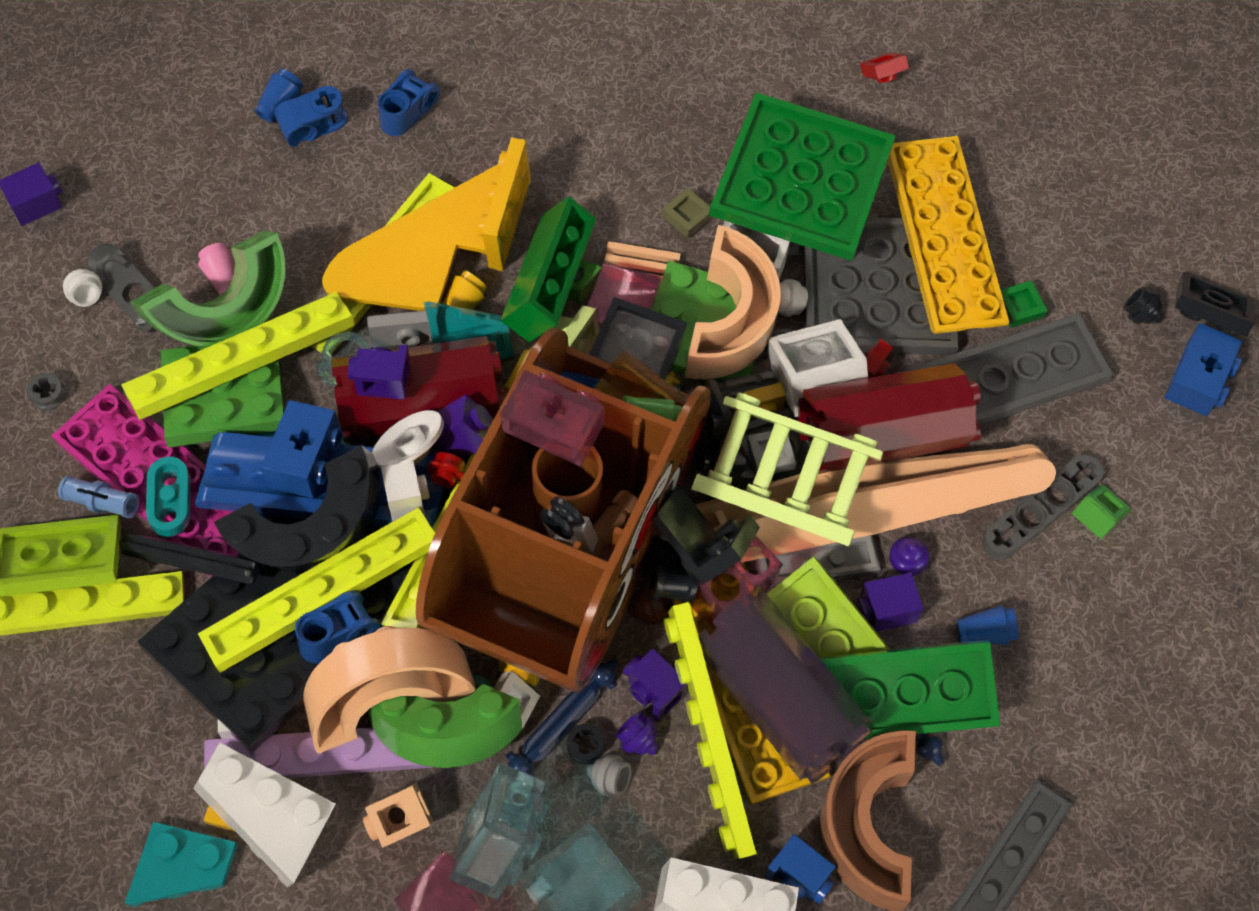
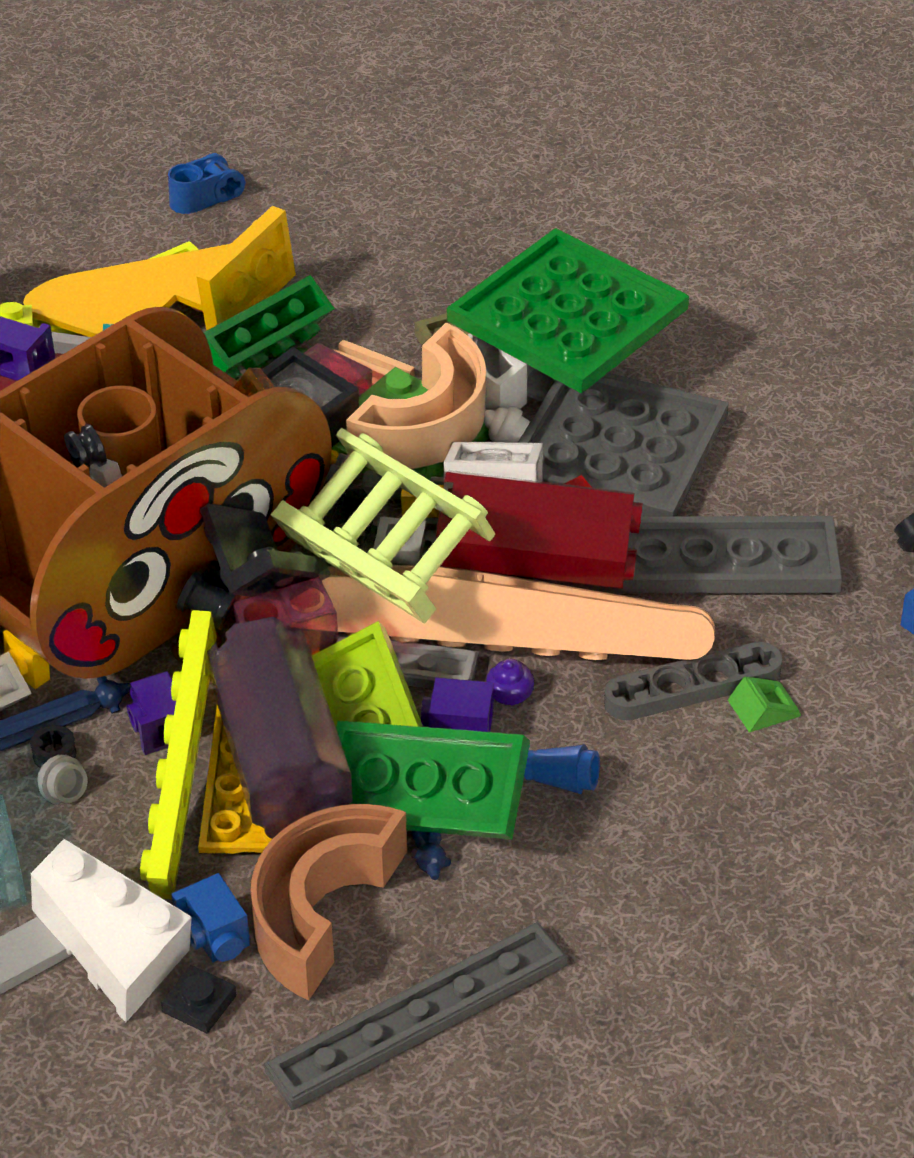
camera: 25 degrees right, 20 degrees down
(278, 89) = (82, 152): blue cone -> none
(308, 116) = (102, 174): blue piece -> none
(563, 435) = (119, 355): clear pink brick -> none
(638, 735) = (112, 753): dark purple plate -> none
(884, 67) = (733, 263): red plate -> none
(946, 236) = (713, 410): yellow plate -> none
(1023, 304) = (771, 495): green plate -> none

